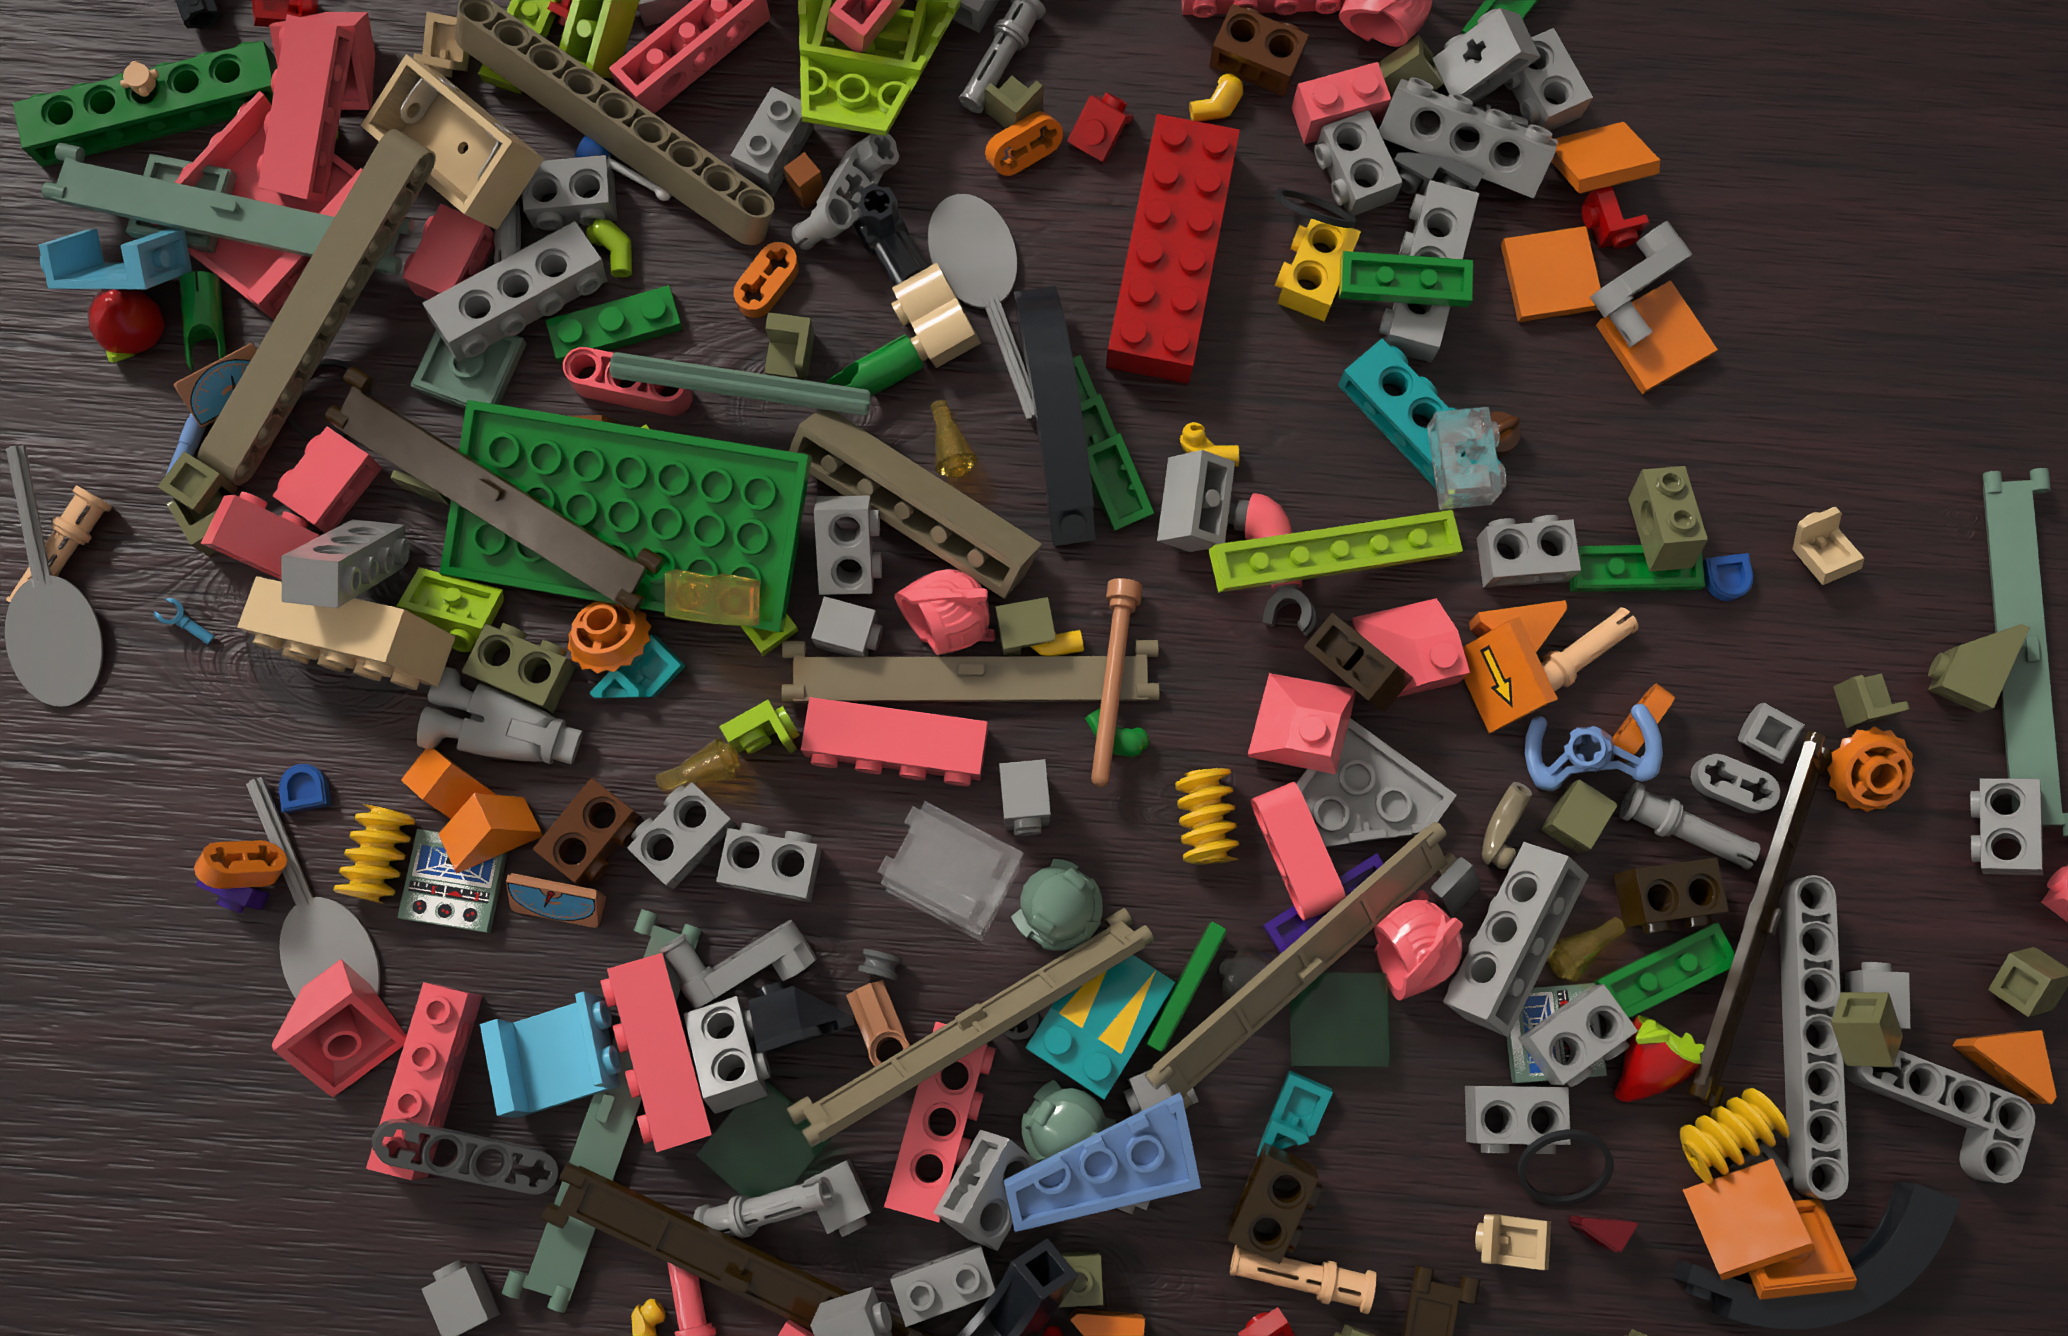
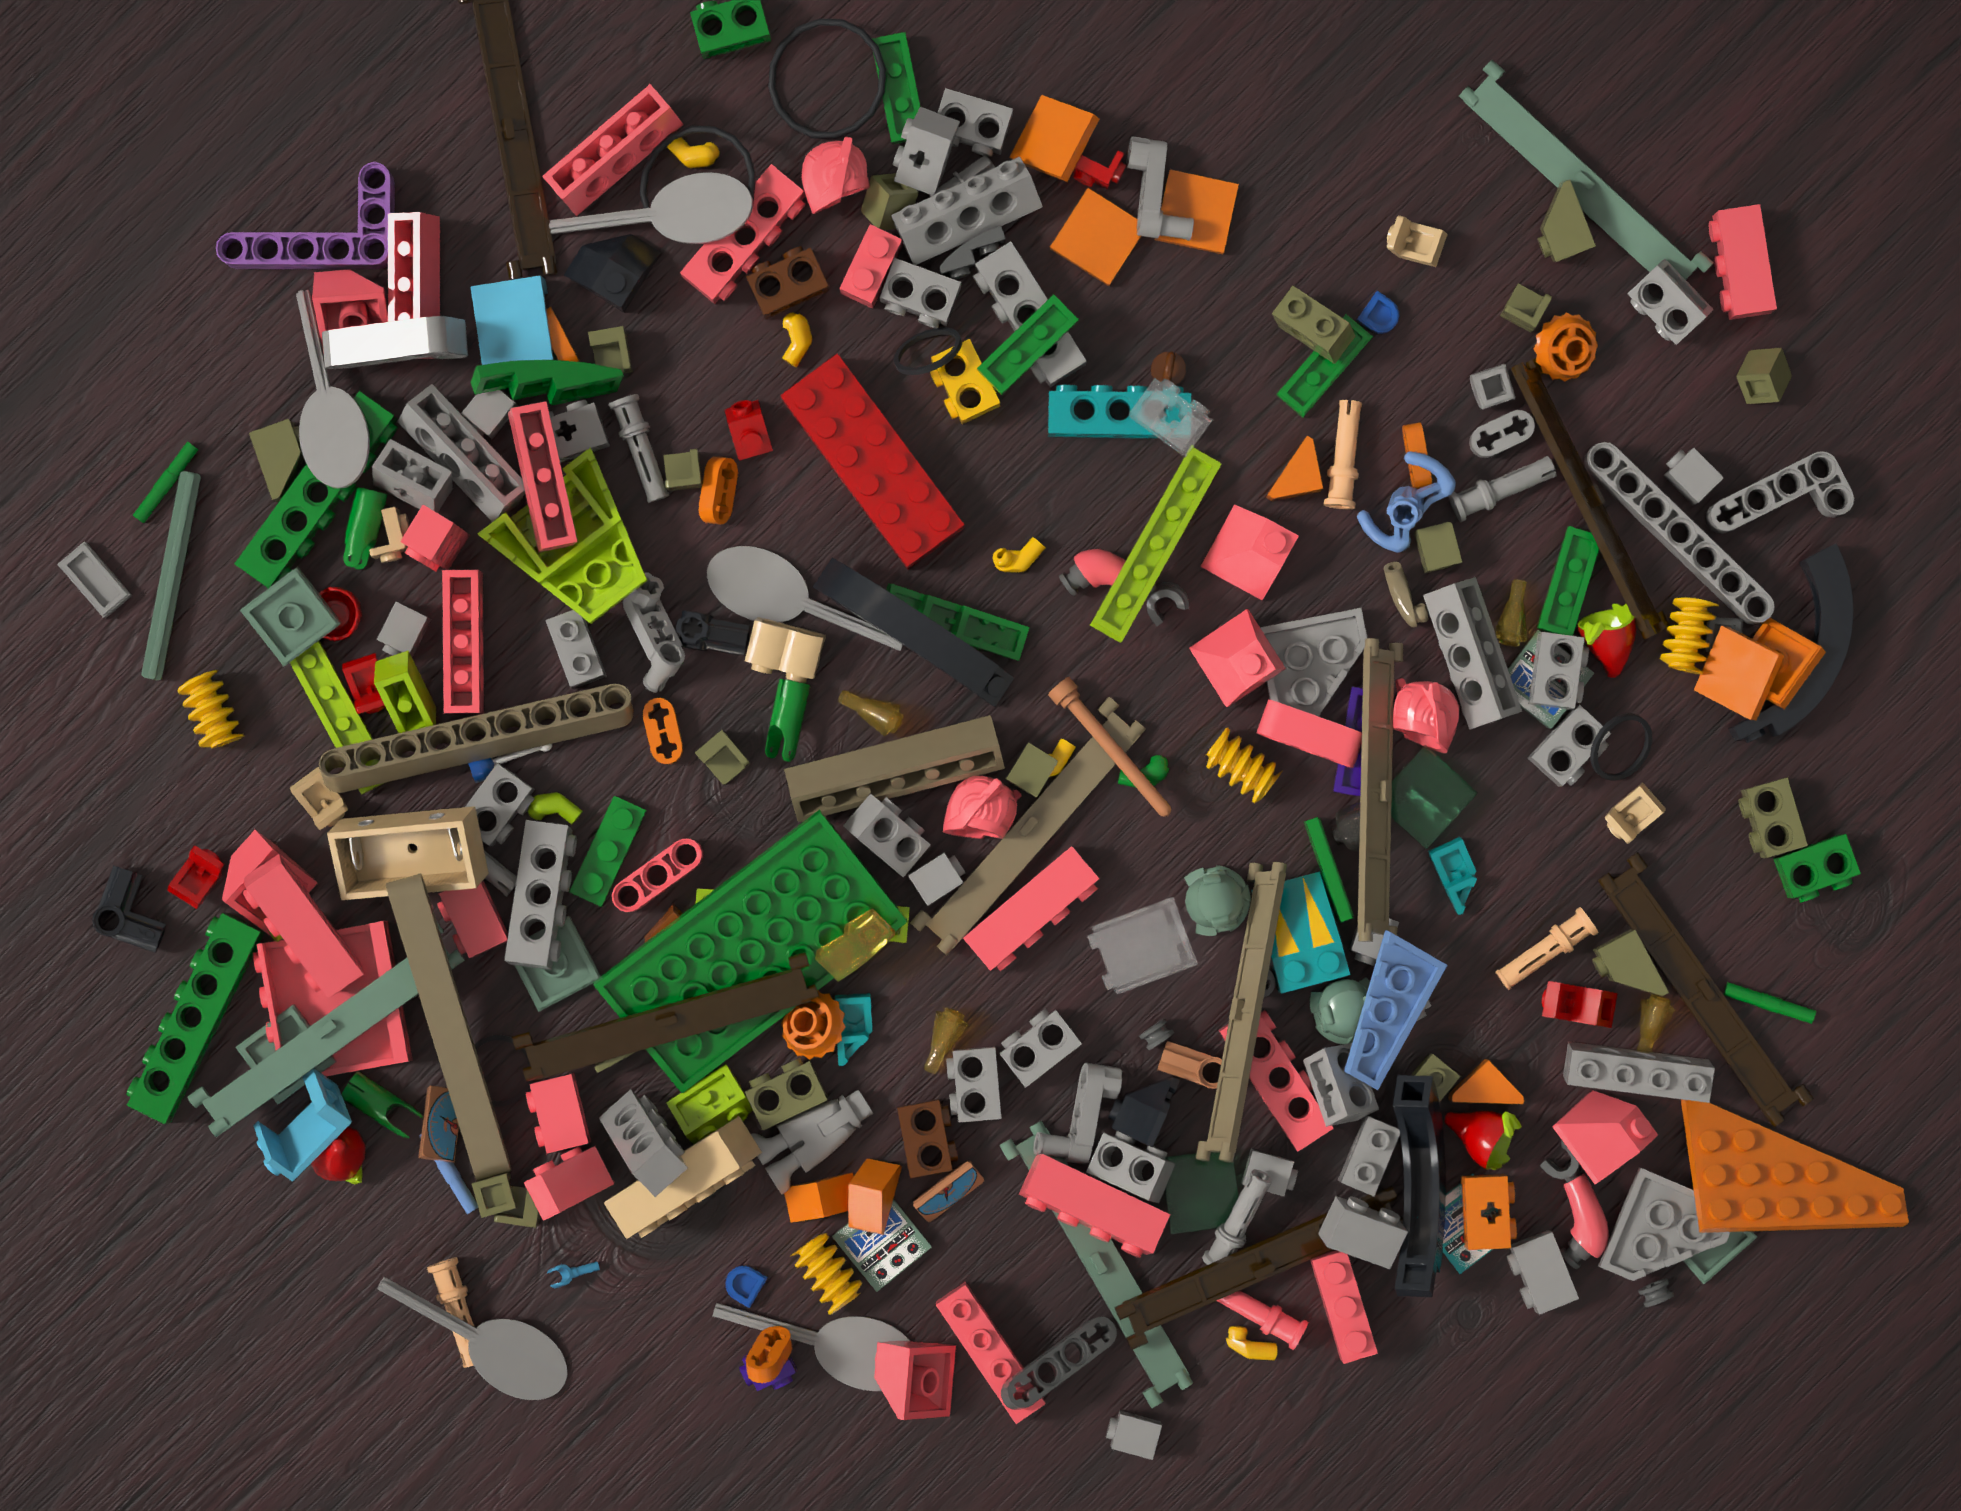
camera: 45 degrees left, 10 degrees up
(139, 78) = (184, 1012): light nougat piece -> none
(551, 1057) = (1042, 1267): medium azure panel -> none
(740, 383) = (729, 810): sand green axle -> none
(752, 729) = (953, 988): lime bracket -> none
(804, 180) = (621, 651): dark orange piece -> none
(1025, 796) = (1137, 864): light grey brick -> none
(1196, 501) = (1048, 598): light grey brick -> none
(1263, 1200) = (1486, 933): dark brown brick -> none
(1358, 662) = (1233, 594): dark brown brick -> none
(1456, 886) = (1412, 658): dark grey tile -> none
(1506, 676) = (1318, 514): orange tile -> none
(1530, 561) = (1263, 429): light grey brick -> none
(1606, 1232) = (1675, 756): dark red slope -> none
(1670, 891) = (1524, 535): dark brown brick -> none
(1867, 1029) = (1700, 505): olive panel -> none
(2014, 1060) = (1793, 431): orange slope -> none

